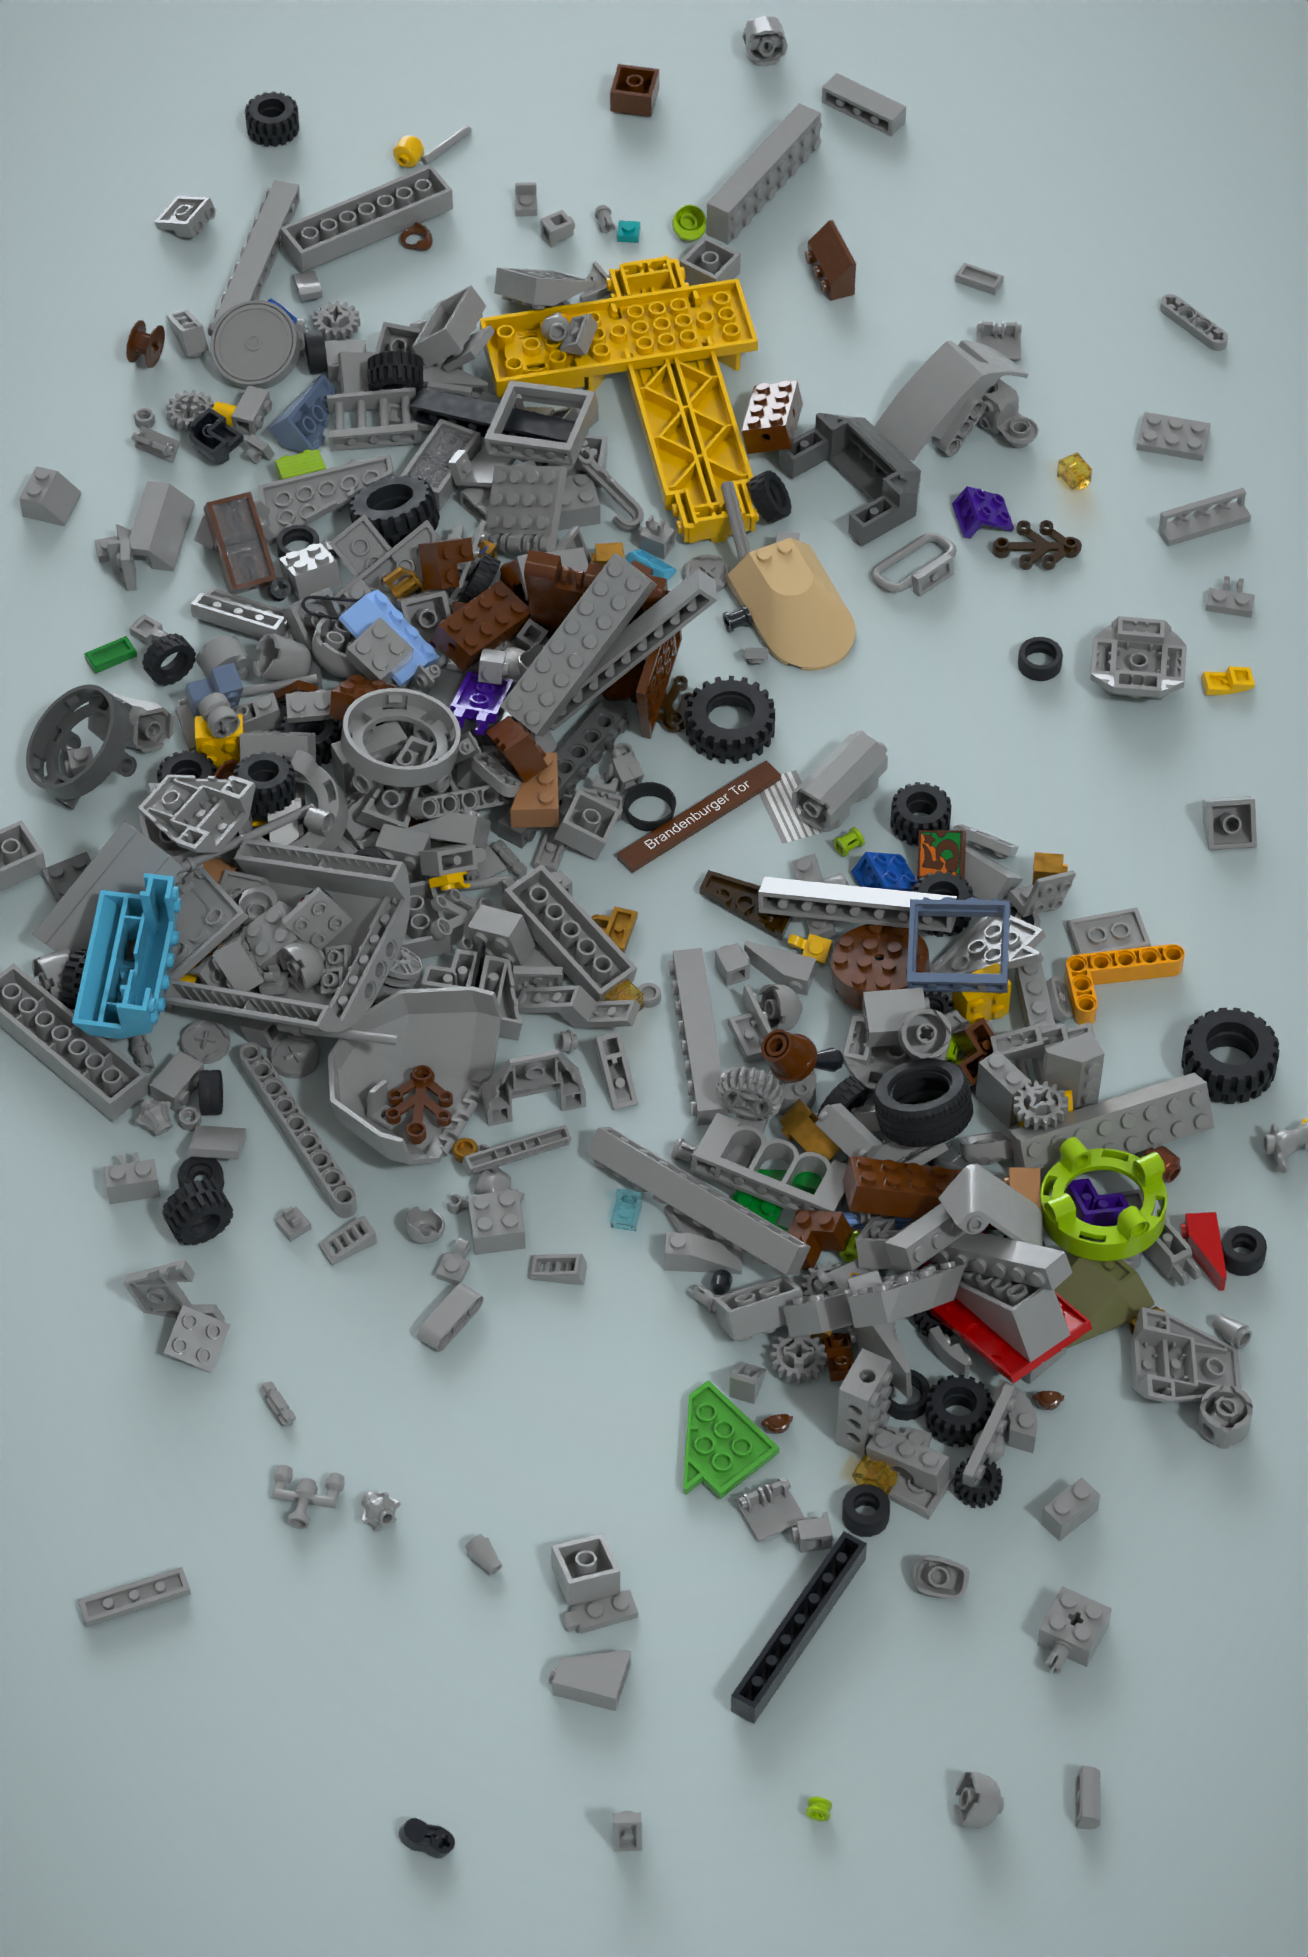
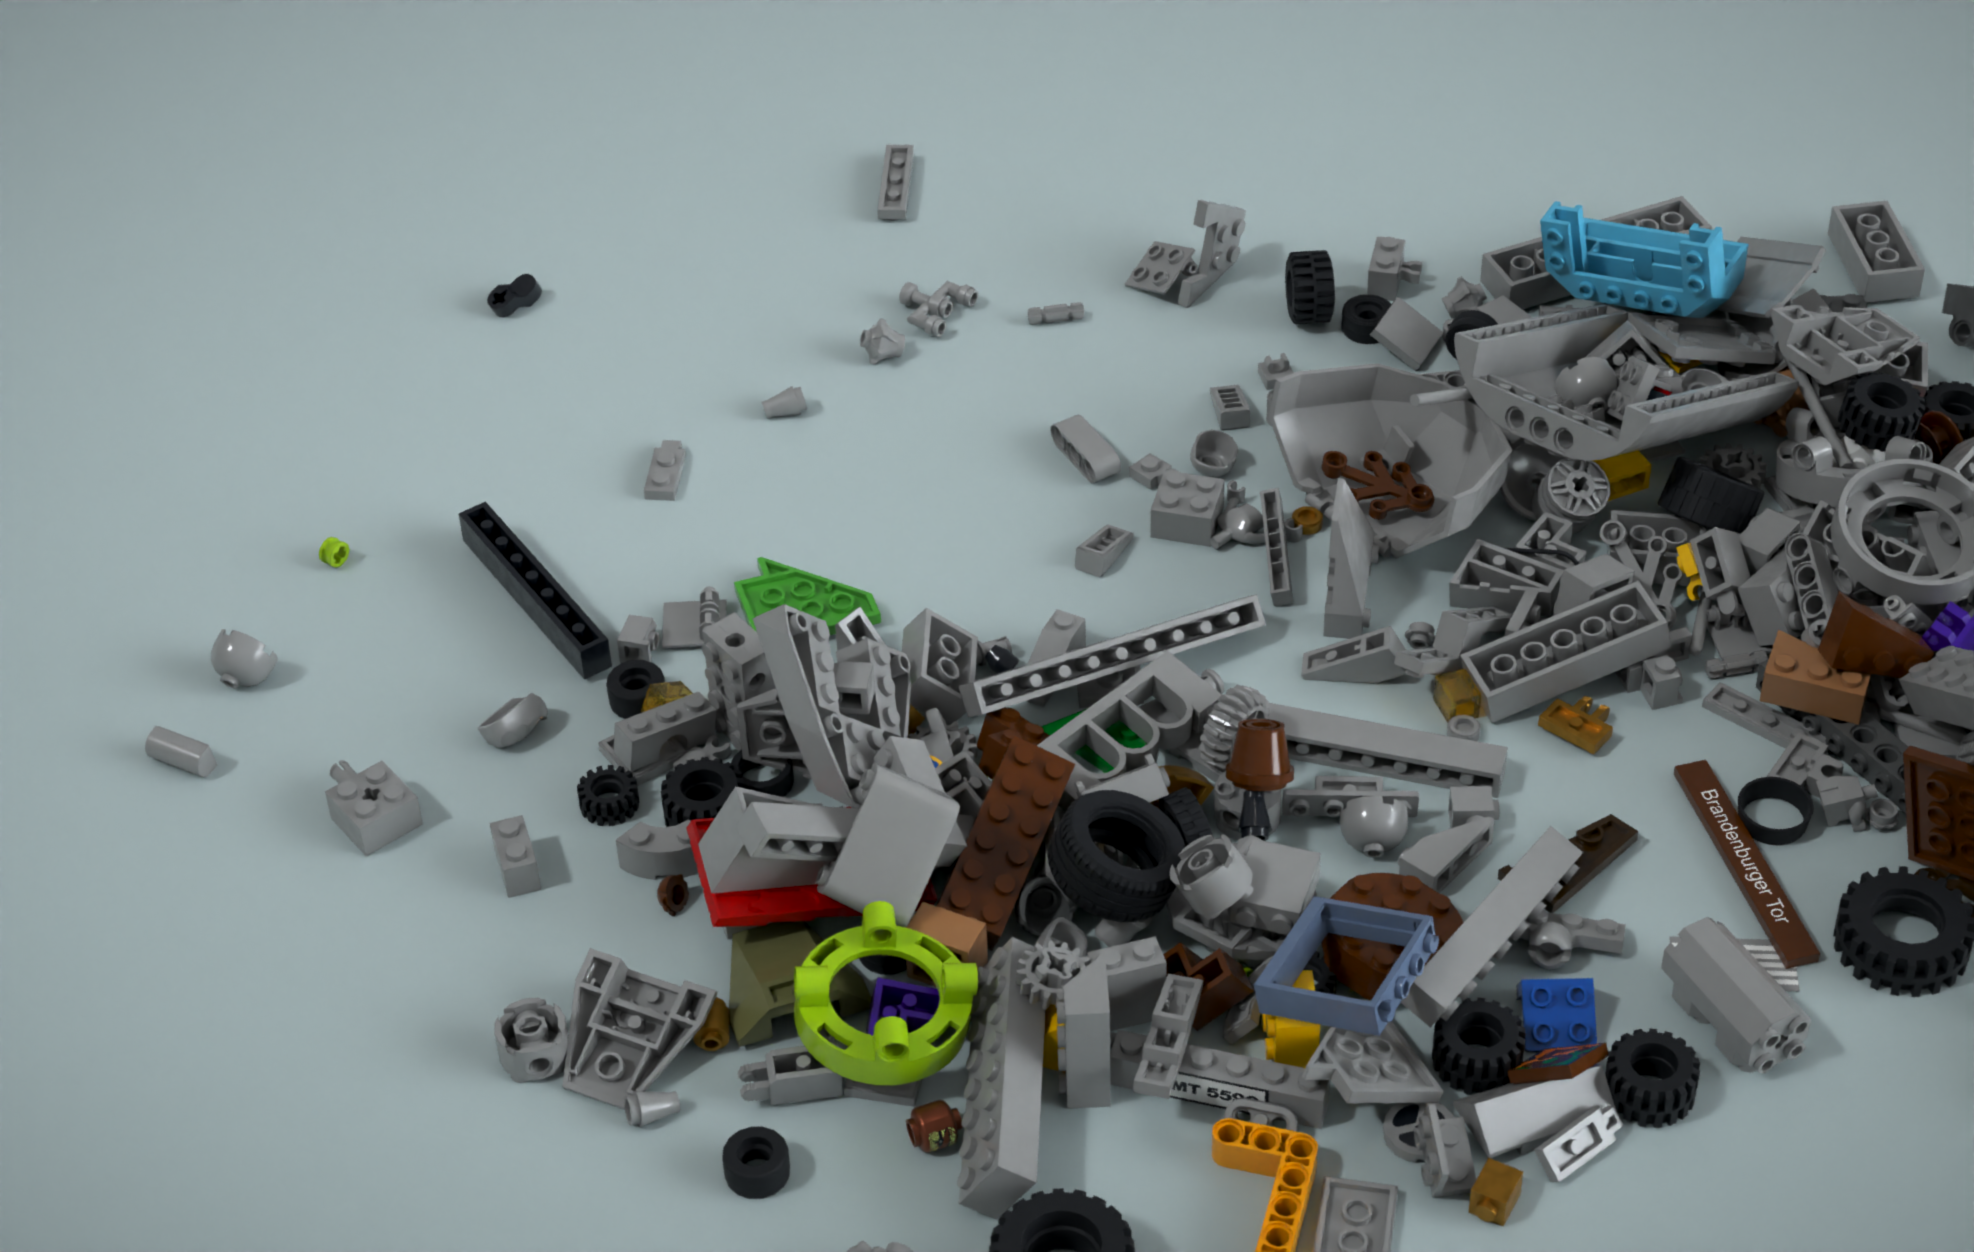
camera: 115 degrees right, 10 degrees down
(585, 1569) = (709, 454): light grey brick -> none
(587, 824) = (1754, 728): light grey brick -> none
(592, 1678) = (590, 438): light grey slope -> none
(626, 1209) = (1146, 615): clear light blue bracket -> none
(627, 1831) = (414, 415): light grey plate -> none
(813, 947) = (1469, 897): yellow plate -> none
(848, 841) = (1635, 991): lime bush -> none
(989, 1441) = (642, 797): light grey plate -> none
(1203, 1237) = (803, 1124): red slope -> none

